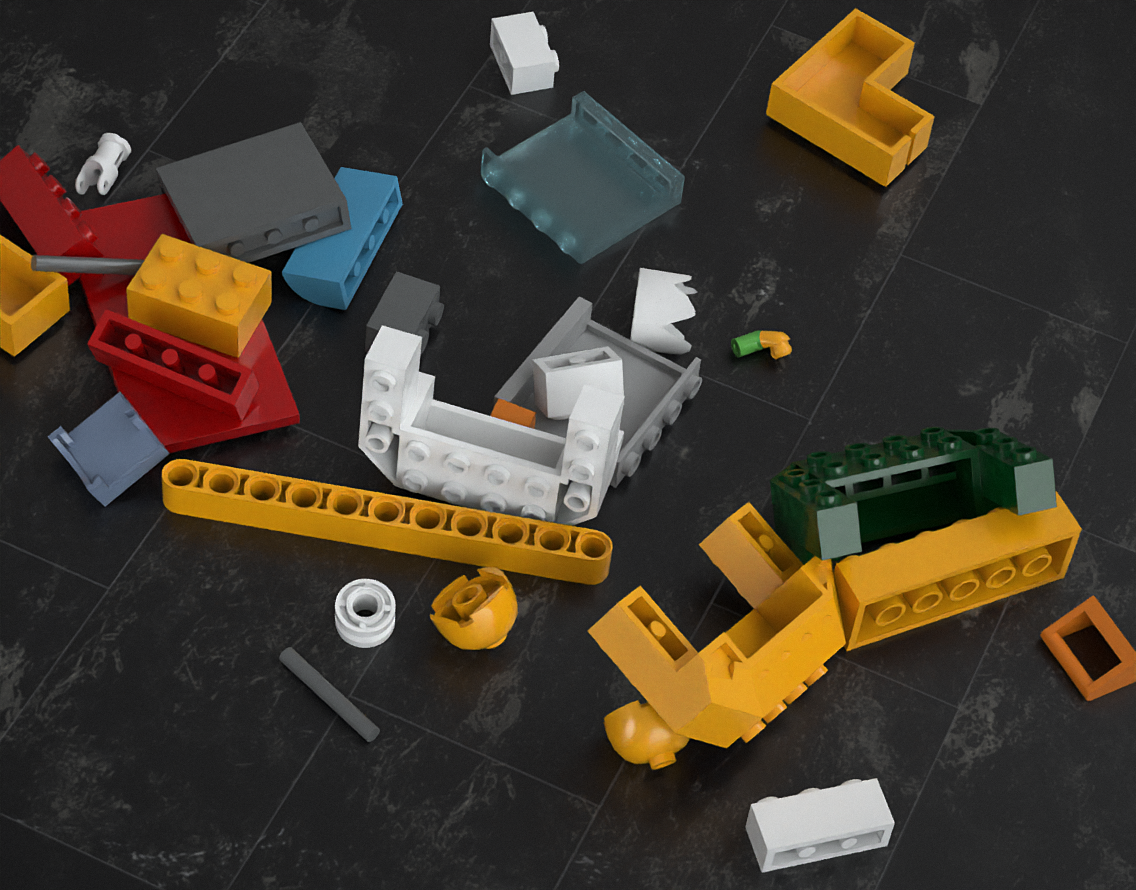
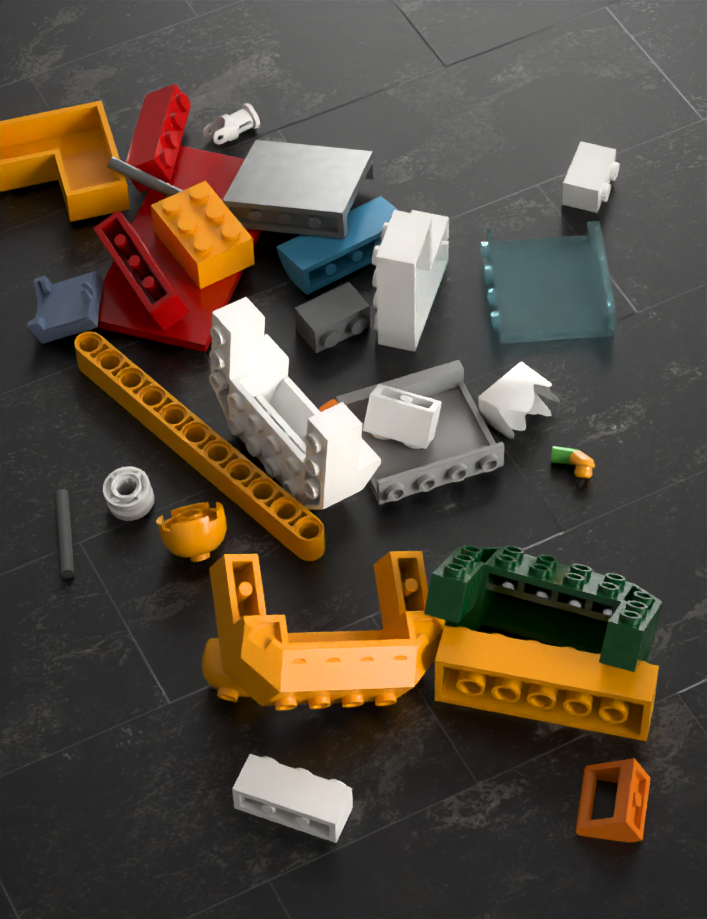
camera: 45 degrees right, 0 degrees up
(466, 229) = (408, 275): none -> white piece

